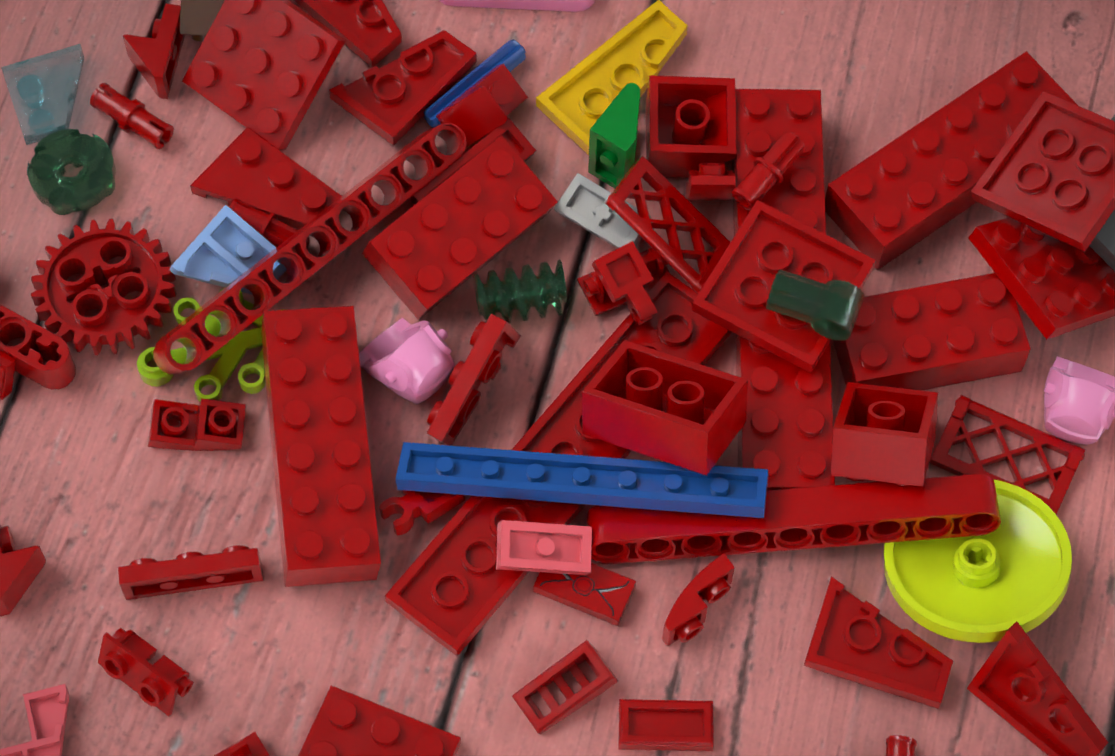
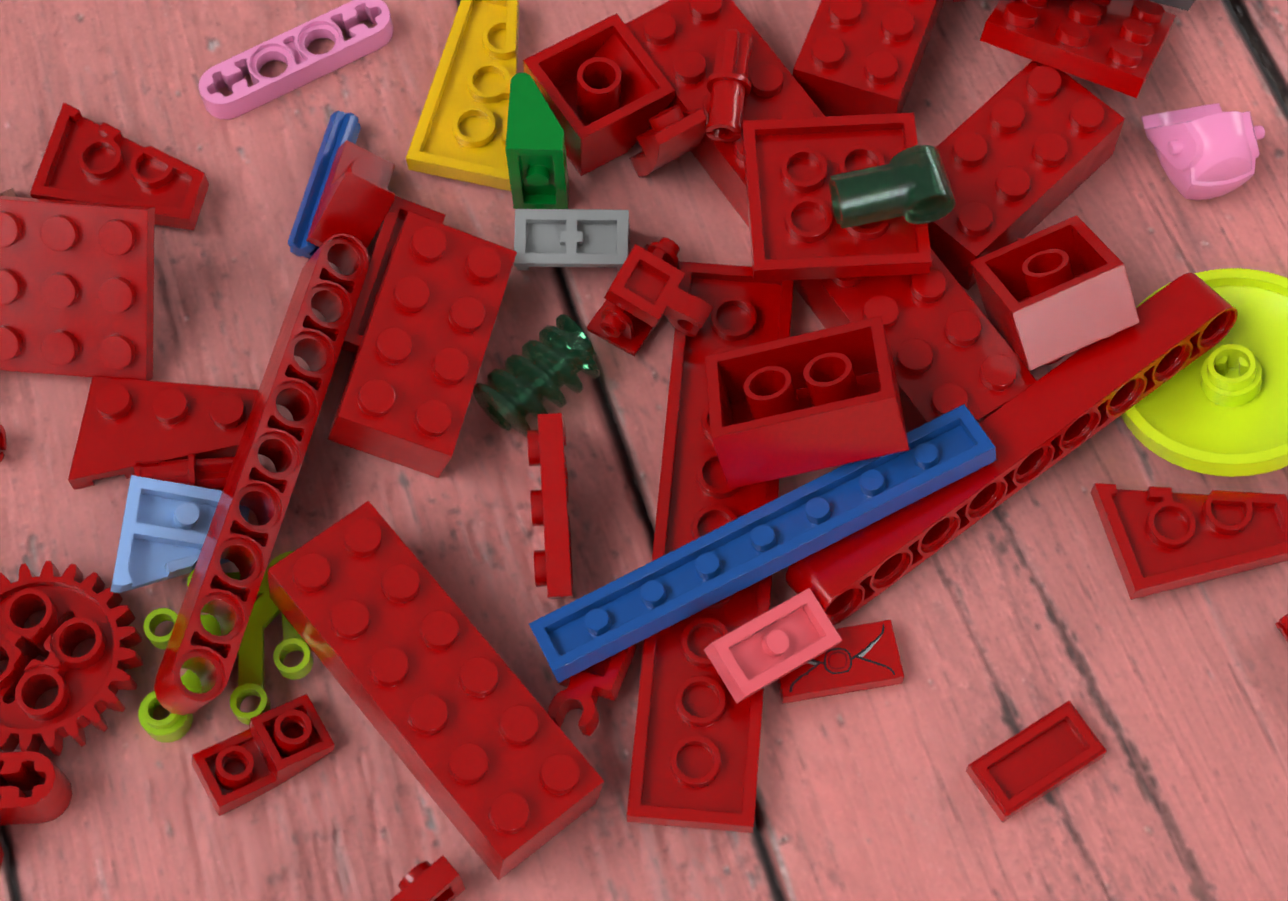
camera: 30 degrees left, 0 degrees up
(397, 94) = (247, 235): red wing -> none
(409, 359) = (465, 524): bright pink helmet -> none
(555, 673) = (918, 742): red slope -> none
(668, 197) = (639, 184): red window -> none
(690, 610) = (972, 606): red slope -> none
(1001, 421) = (1237, 229): red window -> none

